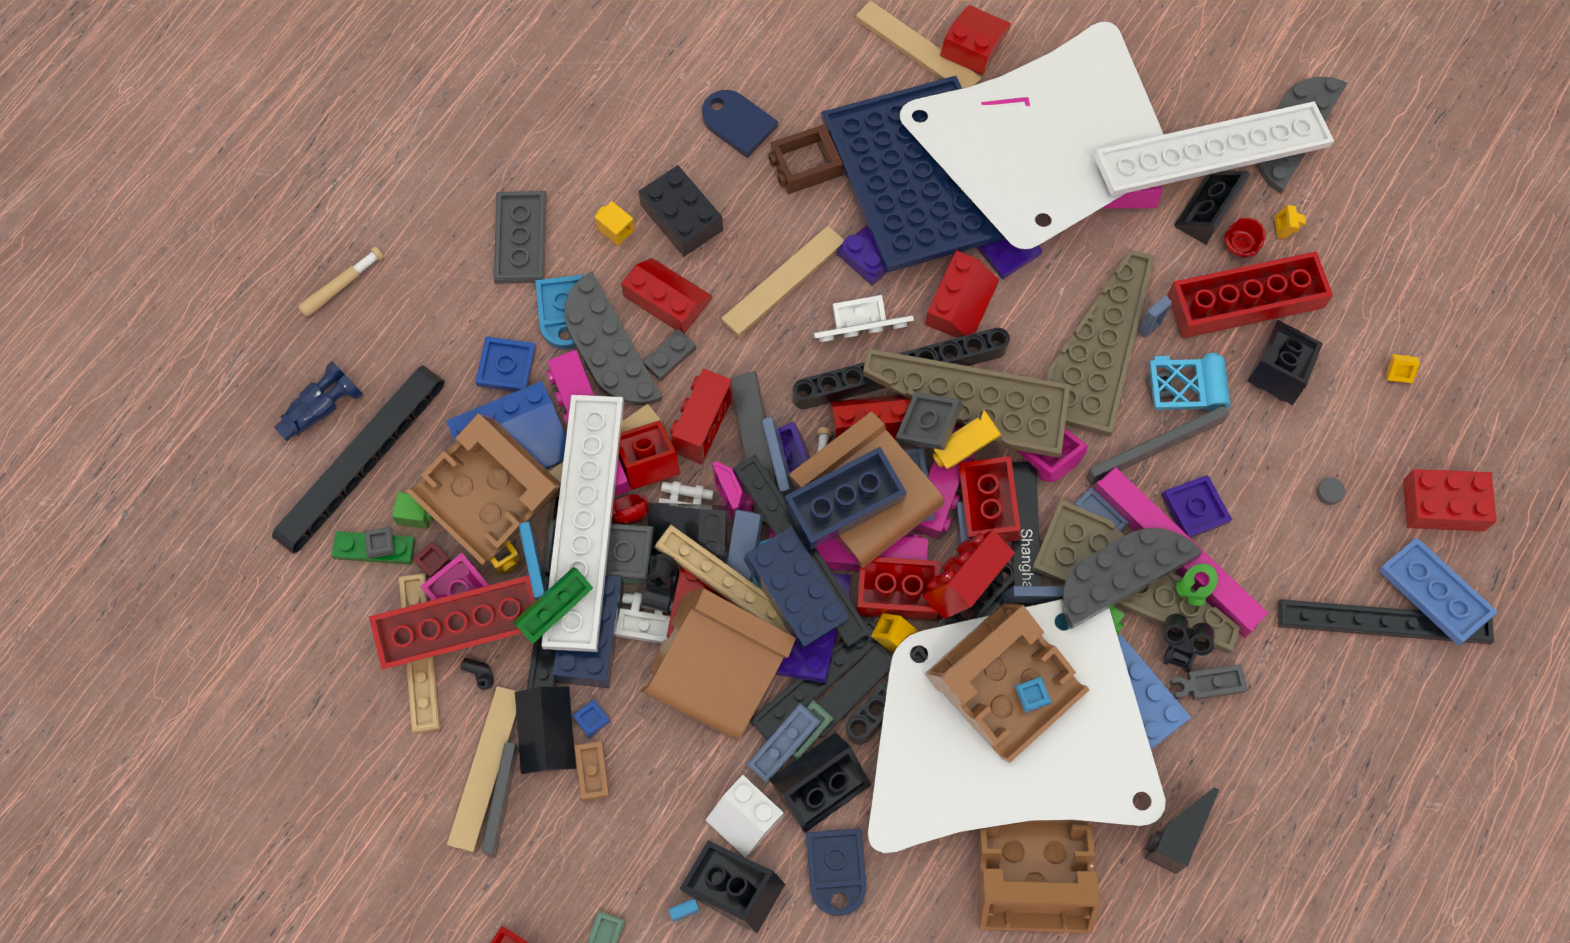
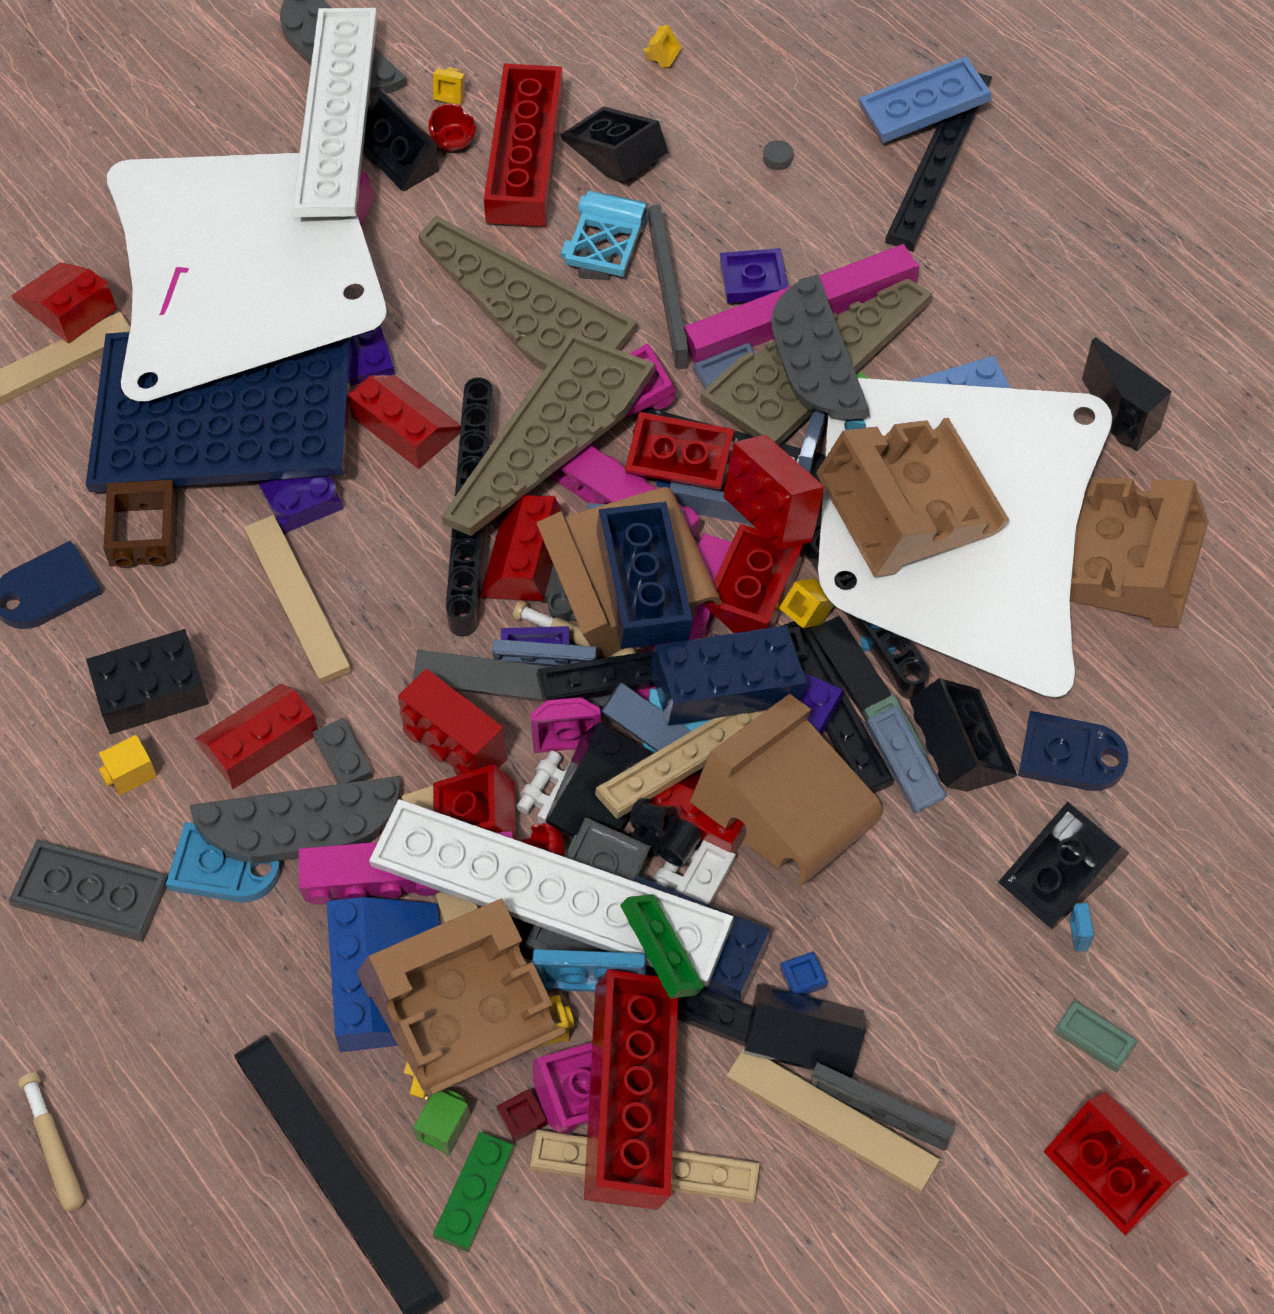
camera: 70 degrees left, 10 degrees down
(314, 404) = (228, 1219): dark blue piece -> none
(379, 542) = (475, 1172): dark grey tile -> none
(481, 670) = (699, 1091): black arm -> none
(505, 364) = (274, 952): blue plate -> none
(591, 771) = (874, 988): medium nougat plate -> none
(744, 816) = (982, 828): white slope -> none
(860, 315) = (384, 527): white bracket -> none
(929, 421) = (569, 470): dark grey plate -> none
(967, 441) = (606, 446): yellow window -> none
(1032, 695) = (939, 470): dark azure tile -> none
(1154, 317) = (516, 232): sand blue tile -> none
(1183, 645) = (911, 328): black piece -> none
(1199, 597) = (864, 299): bright green piece -> none
(1212, 683) = (961, 325): dark grey plate -> none
(1449, 500) = (827, 57): red brick -> none

